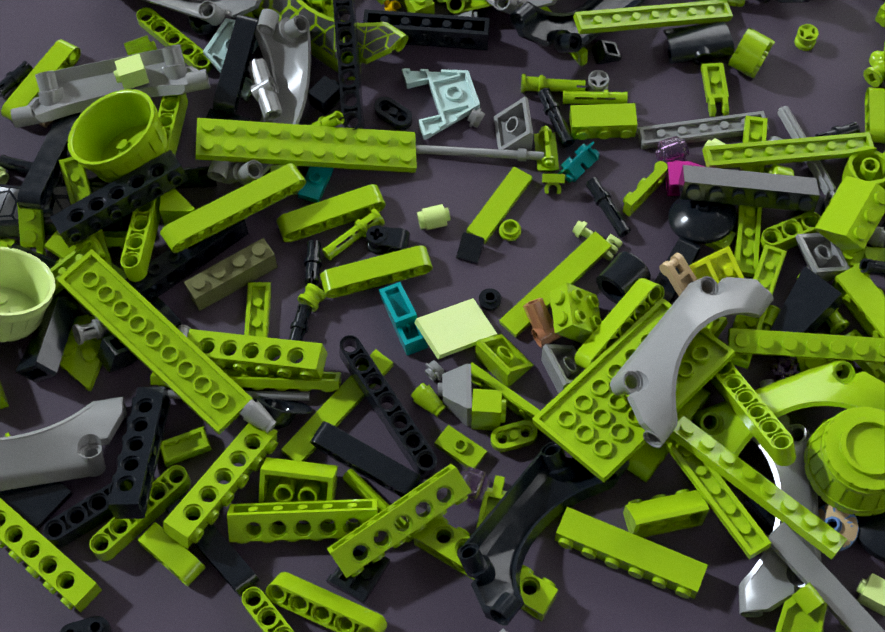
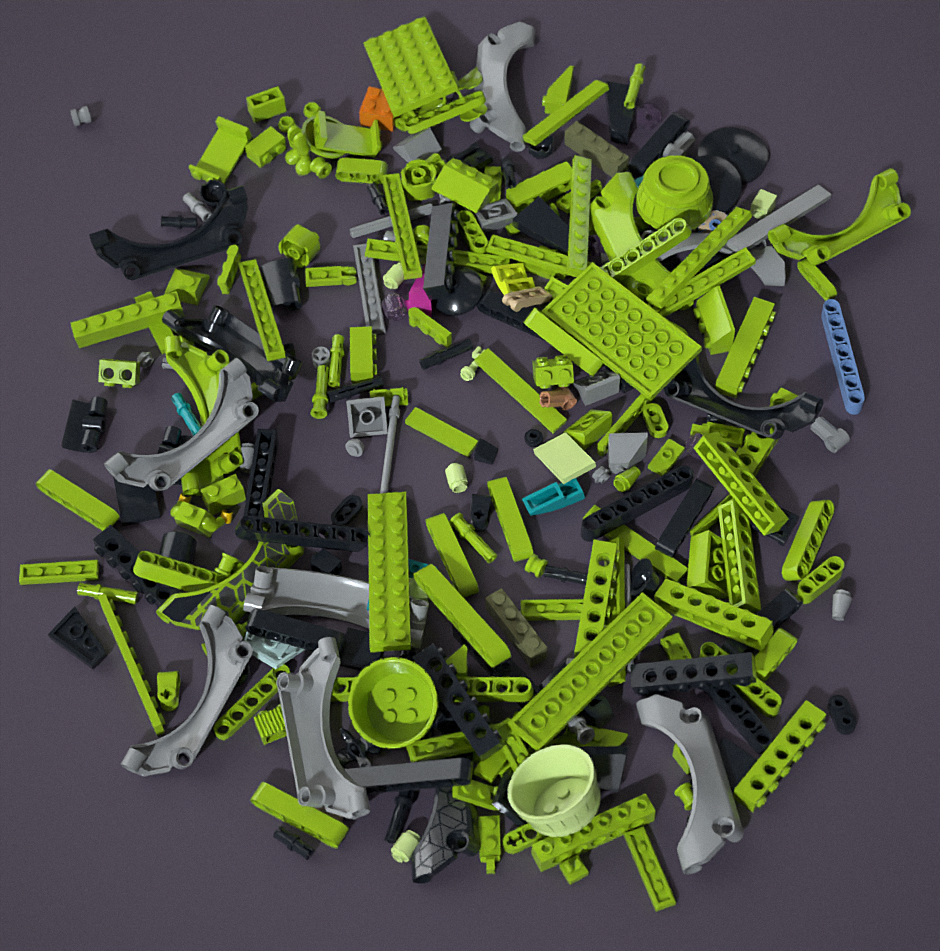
camera: 90 degrees left, 5 degrees down
(131, 72) = (307, 716): yellowish green brick -> none
(258, 416) = (657, 588): light grey cone -> none
(265, 89) = (324, 608): light grey piece -> none
(312, 262) = (501, 567): black pin -> none
(330, 120) = (362, 560): lime axle -> none
(452, 95) = (329, 466): light aqua wing -> none
(487, 409) = (640, 424): lime brick -> none
(510, 230) = (467, 423): lime plate -> none
(553, 179) = (420, 391): lime tile -> none
(572, 167) = (398, 373): teal hinge -> none
(621, 276) = (518, 341): black piece -> none
(655, 363) = (588, 299): light grey panel -> none
(806, 31) = (280, 211): lime wheel -> none

